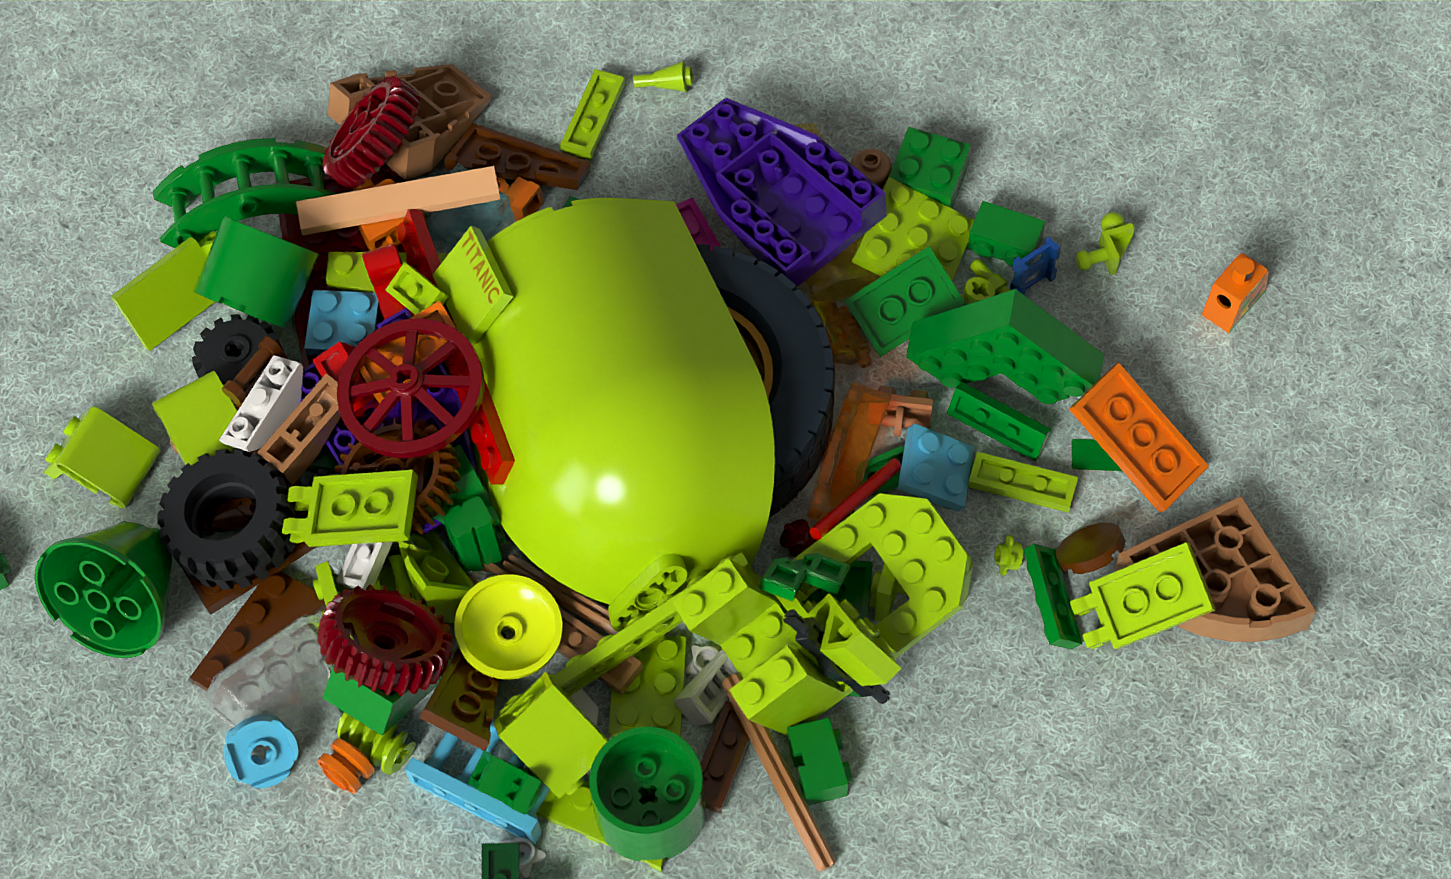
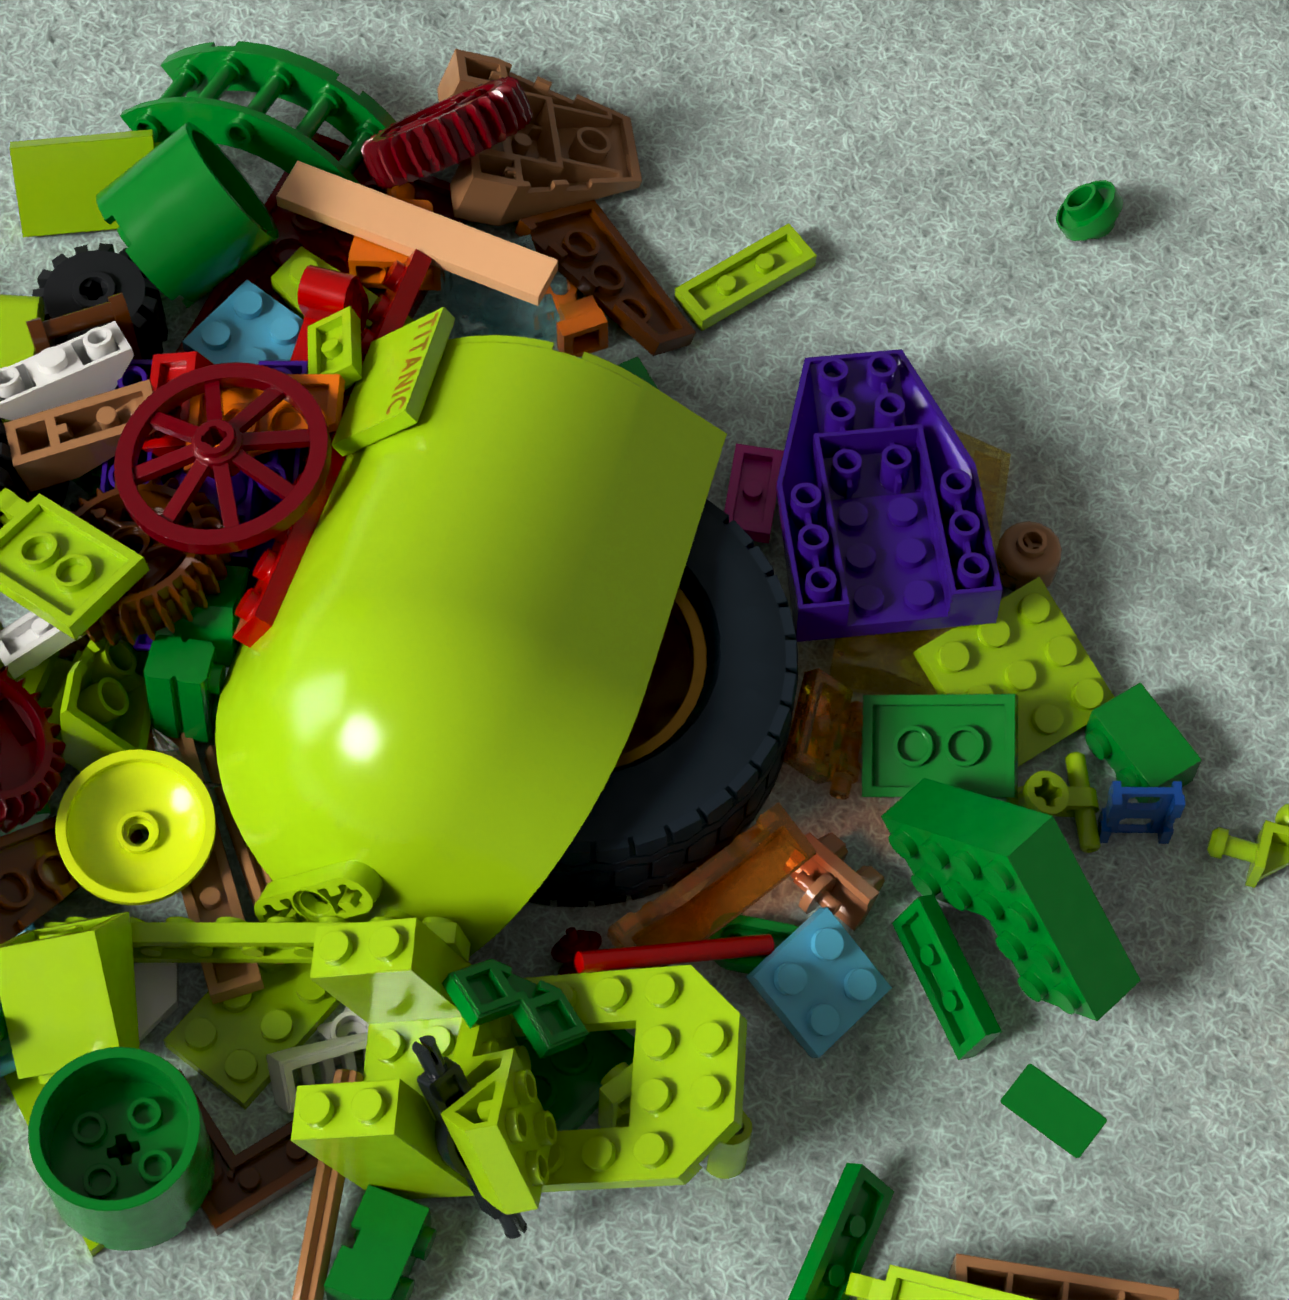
camera: 30 degrees right, 0 degrees up
(673, 77) = (878, 292): lime cone -> none
(932, 165) = (1110, 599): green brick -> none
(1008, 555) = (824, 1157): lime plate -> none
(1023, 482) = (918, 1076): lime plate -> none
(1090, 548) = (933, 1219): reddish brown tile -> none
(1139, 437) = (1106, 1120): orange plate -> none

